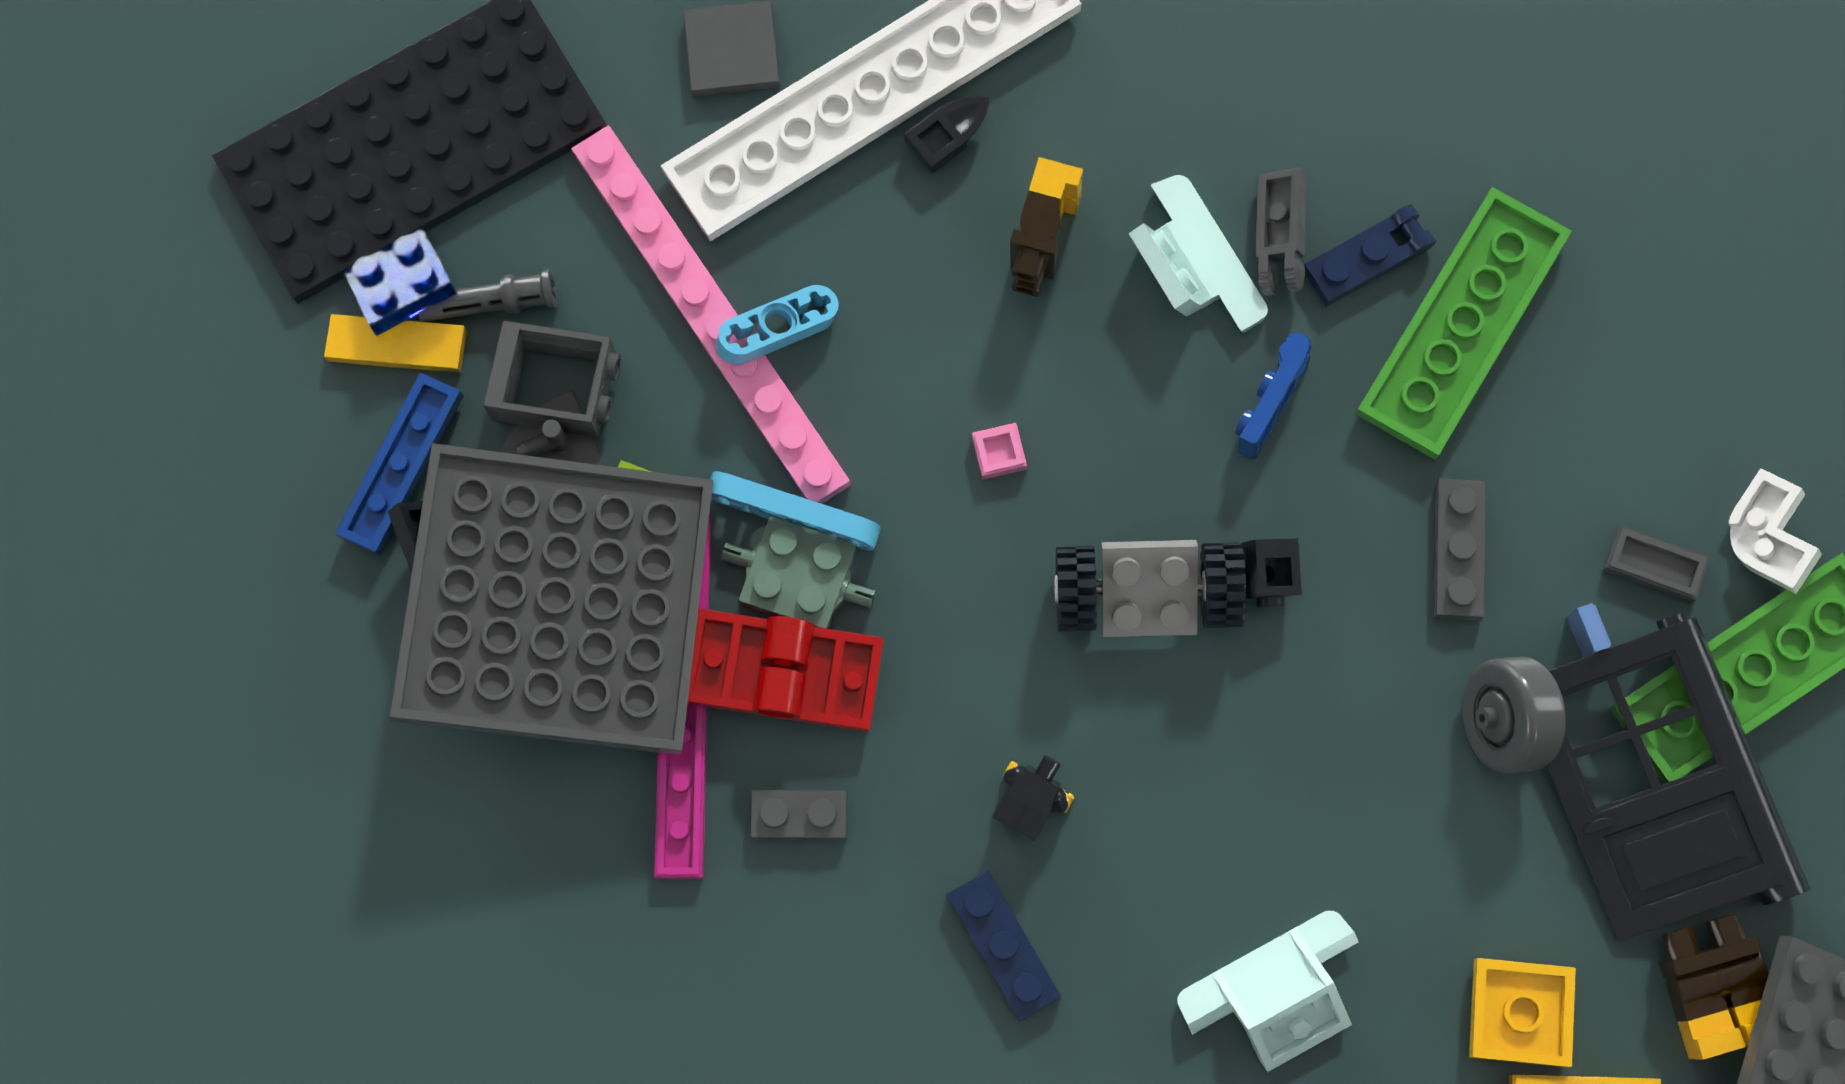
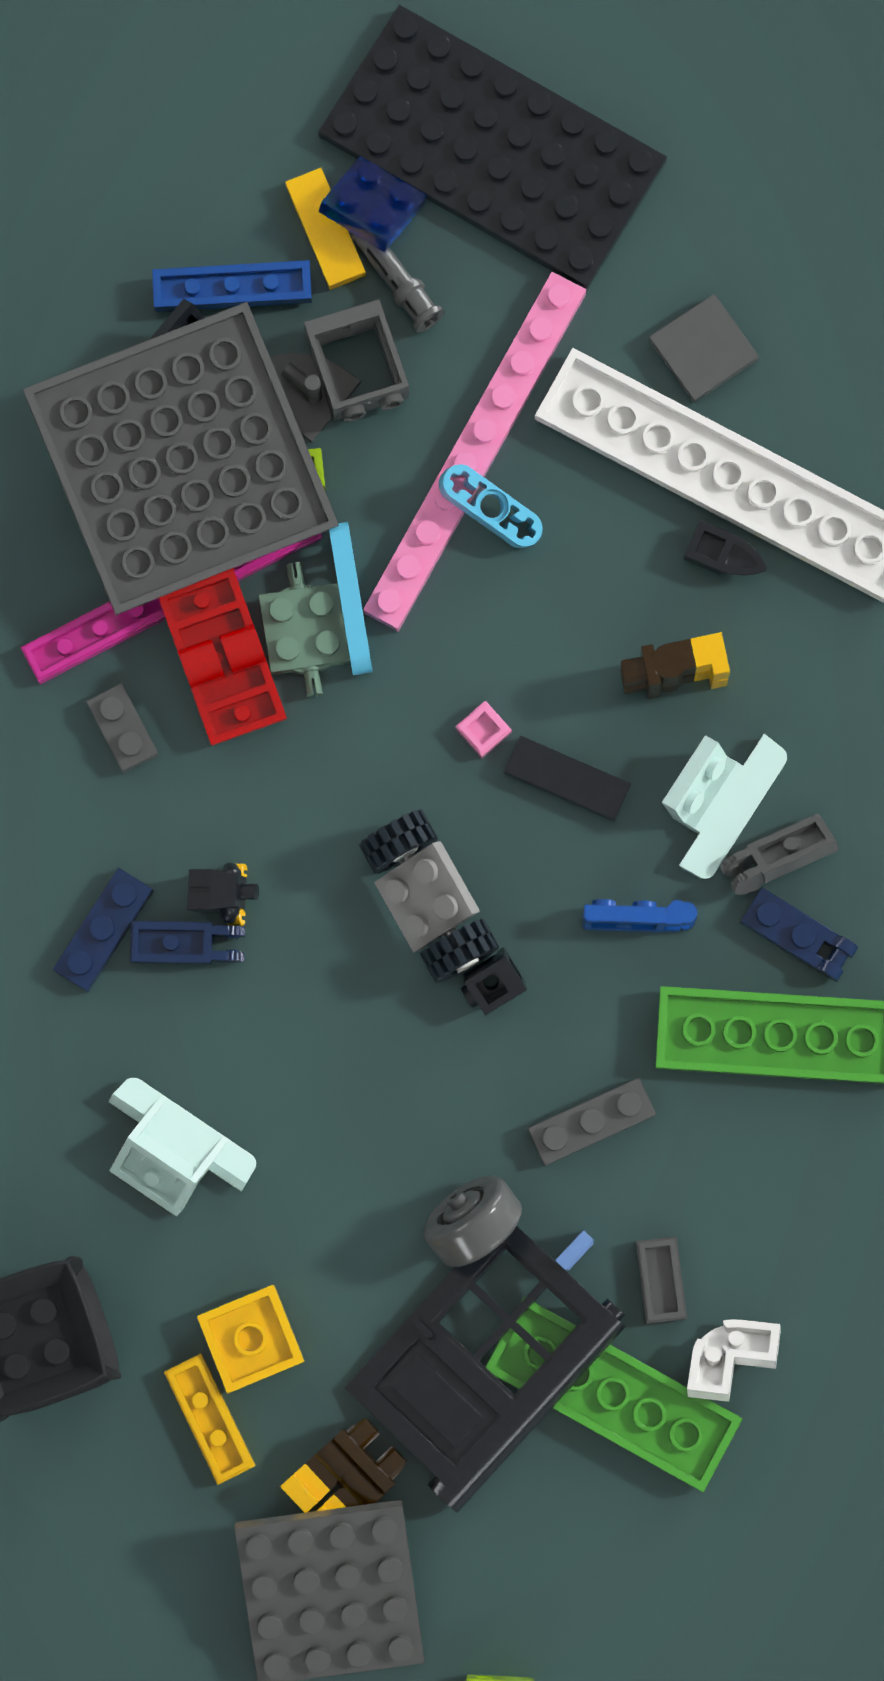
camera: 60 degrees right, 5 degrees up
(1061, 870) = (181, 942): none -> dark blue hinge
(1094, 395) = (567, 778): none -> black tile

